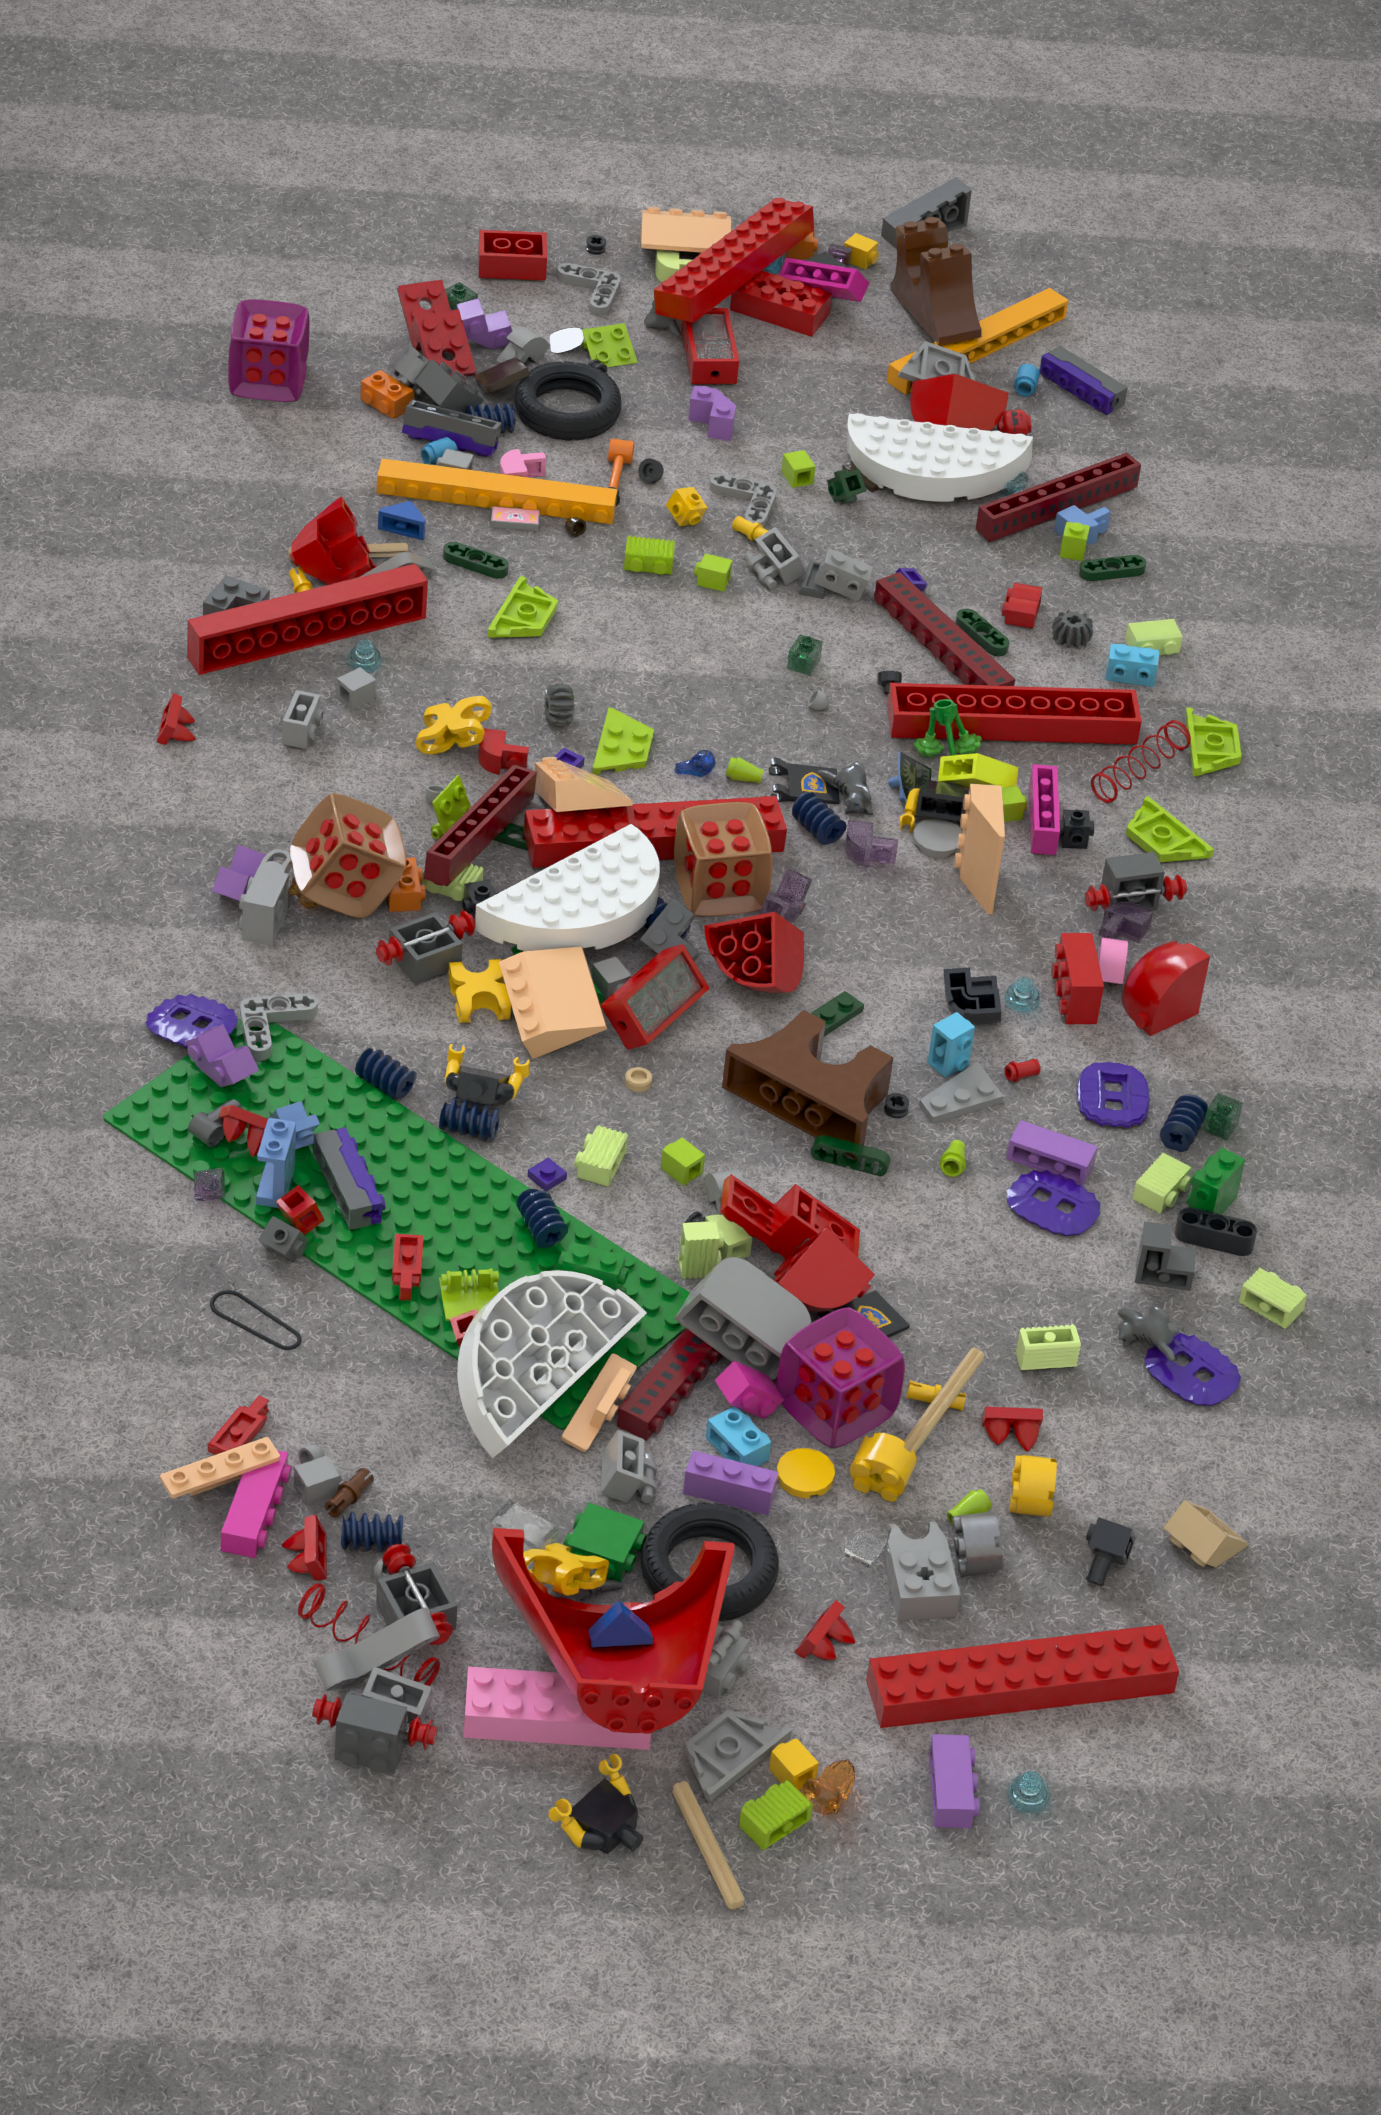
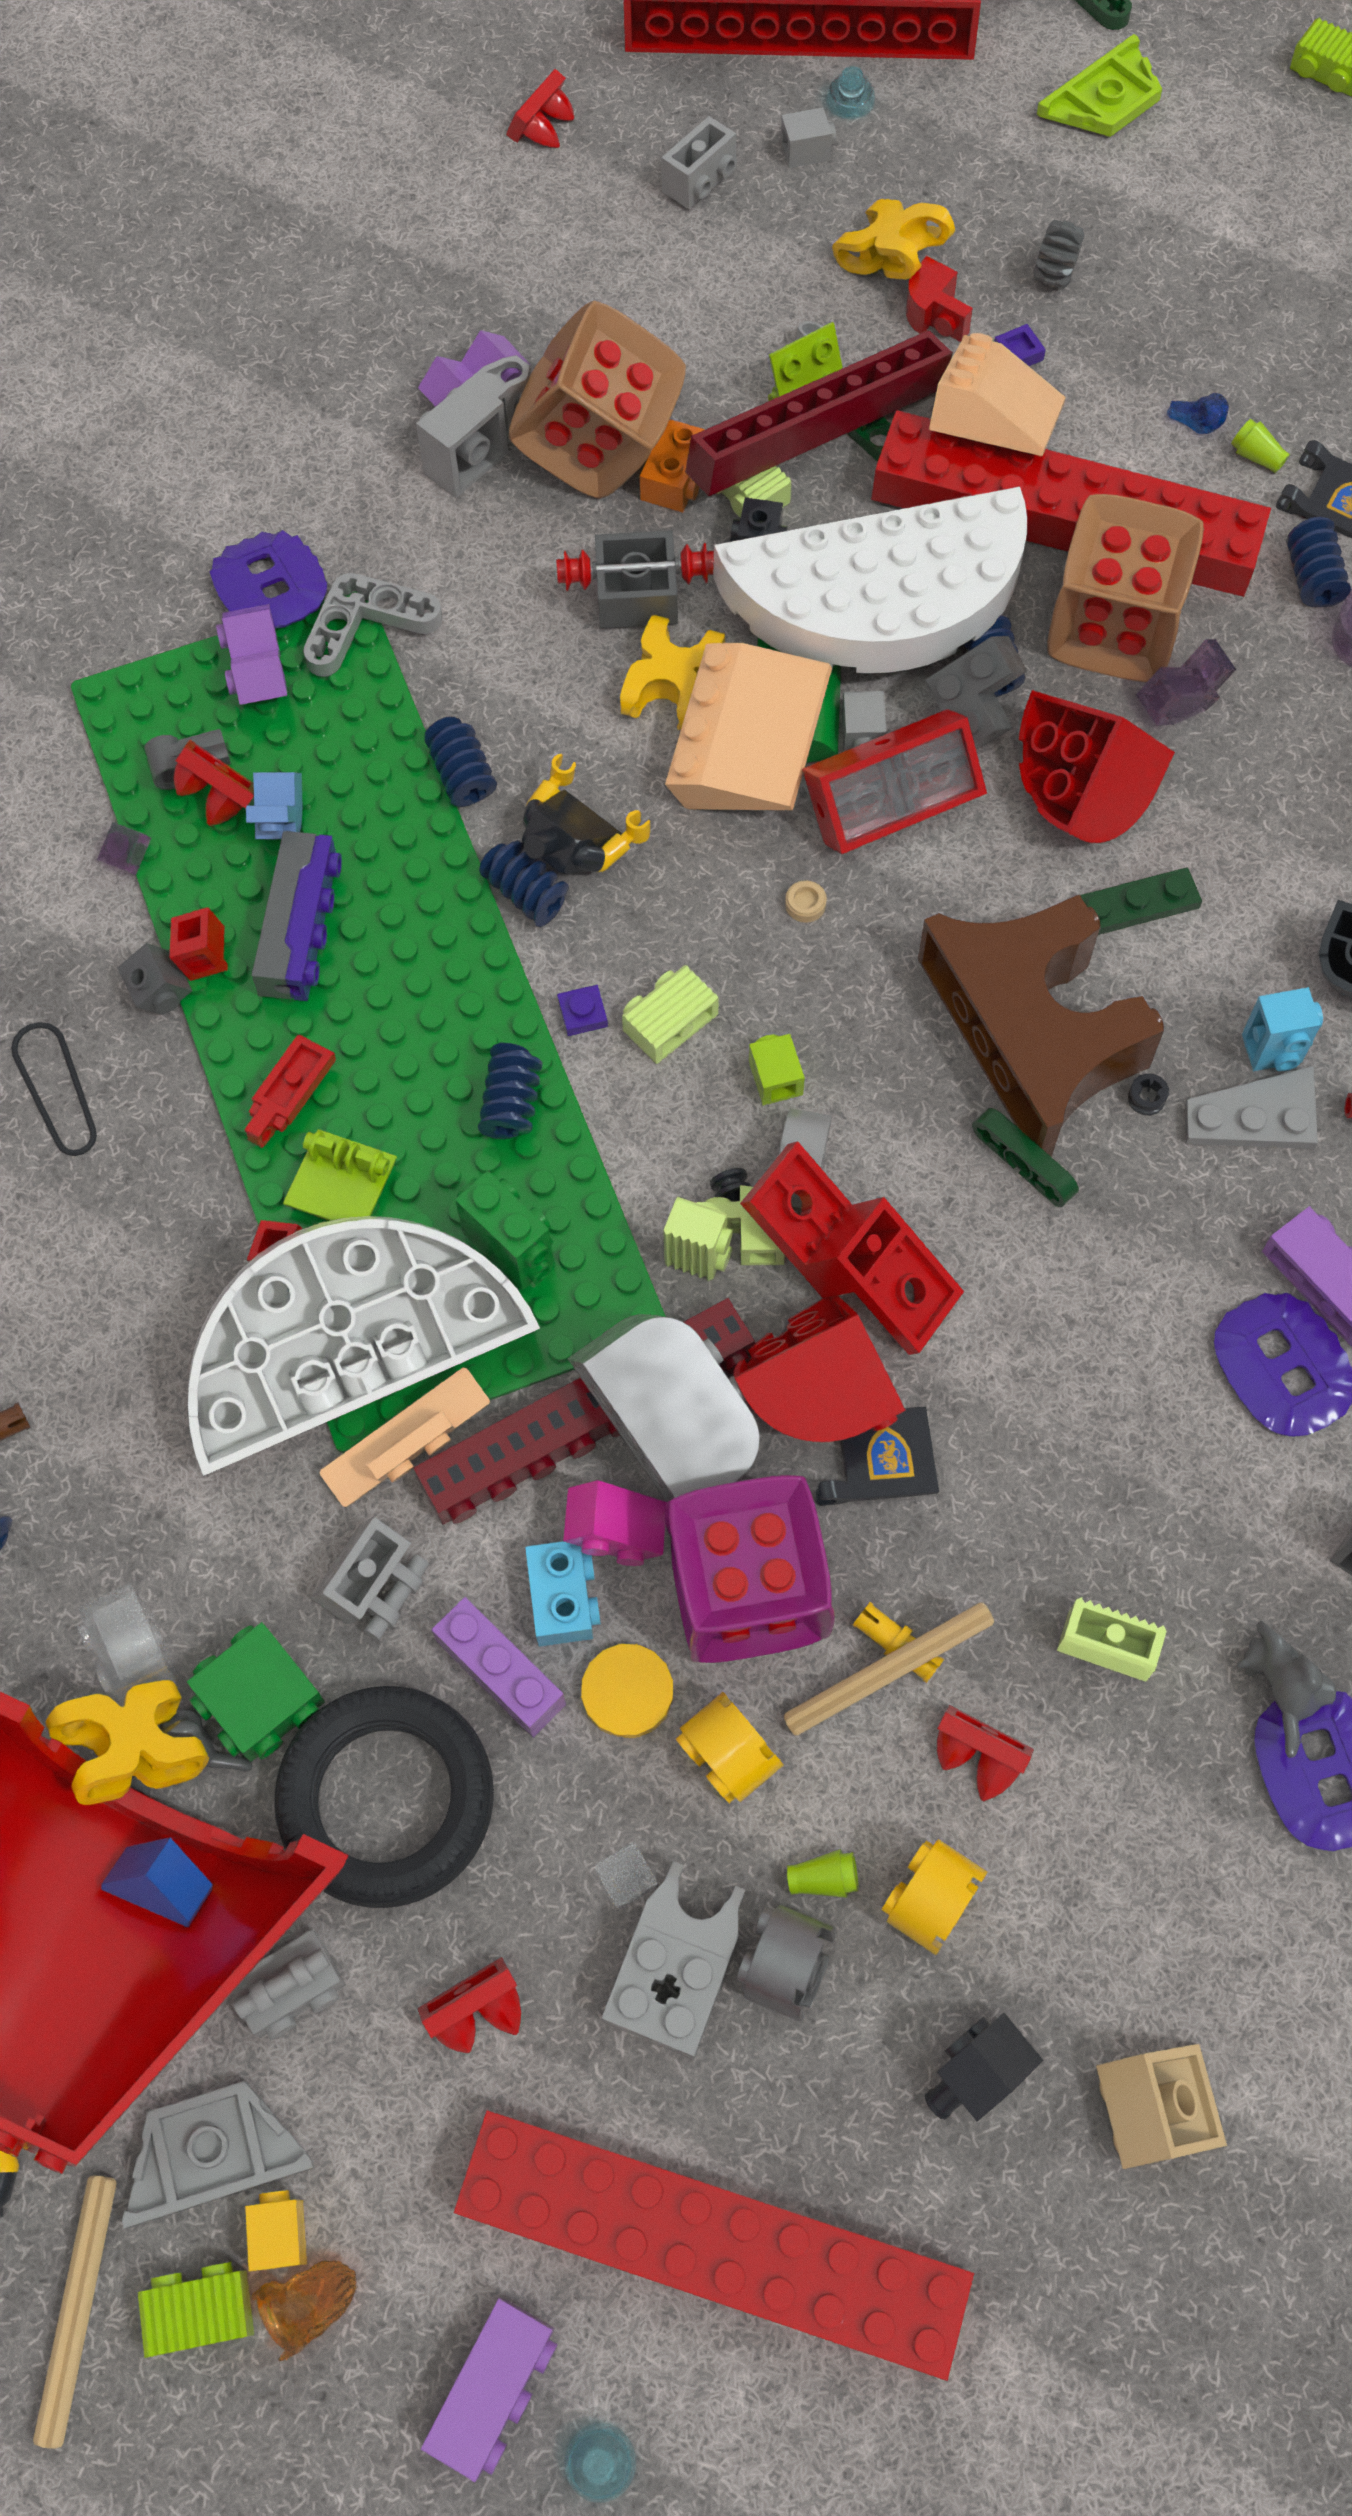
camera: 35 degrees right, 25 degrees up
(279, 1154) = (200, 856): medium blue panel -> none
(623, 743) = (1118, 344): lime wing -> none
(953, 1159) = (1174, 1227): lime cone -> none

